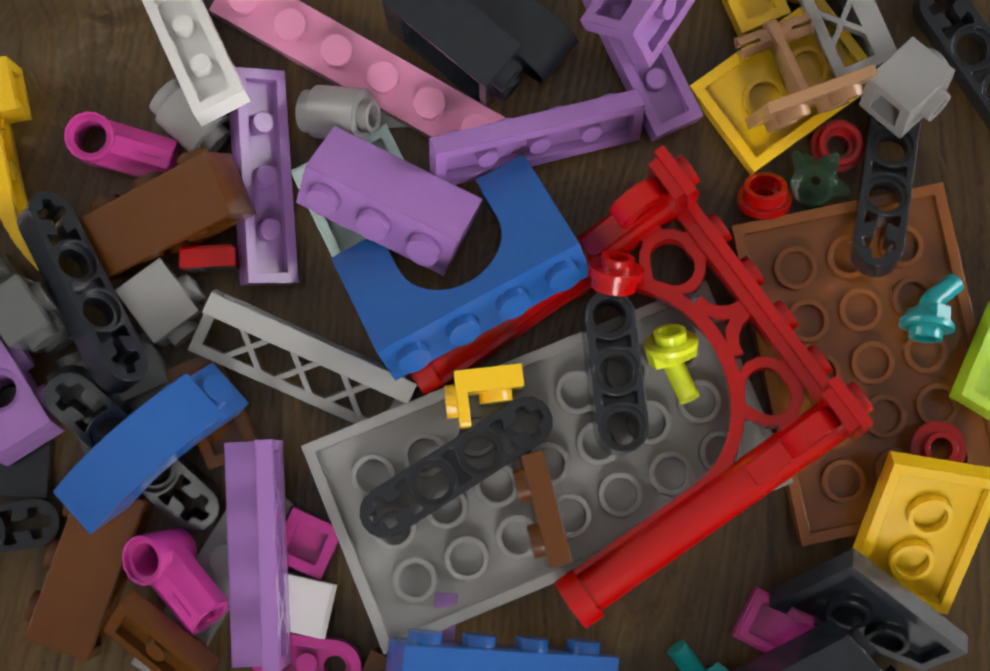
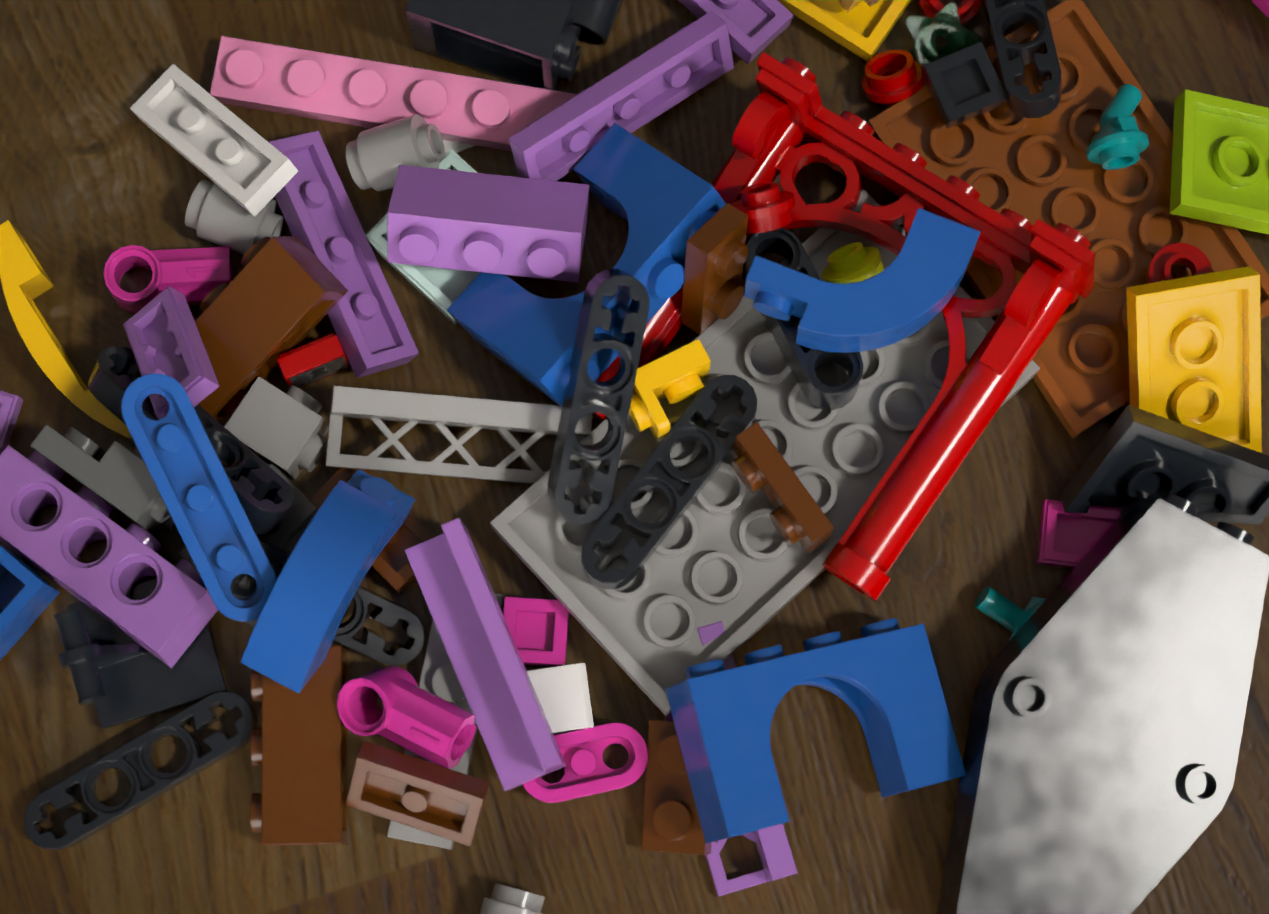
camera: 20 degrees left, 5 degrees down
(63, 345) = (198, 496): none -> blue plate
(89, 218) = (170, 344): none -> medium lavender plate
(425, 384) = (589, 396): none -> black beam
(557, 308) = (714, 269): none -> reddish brown plate
(682, 398) = (877, 309): none -> blue arch
(820, 226) = (964, 85): none -> black plate

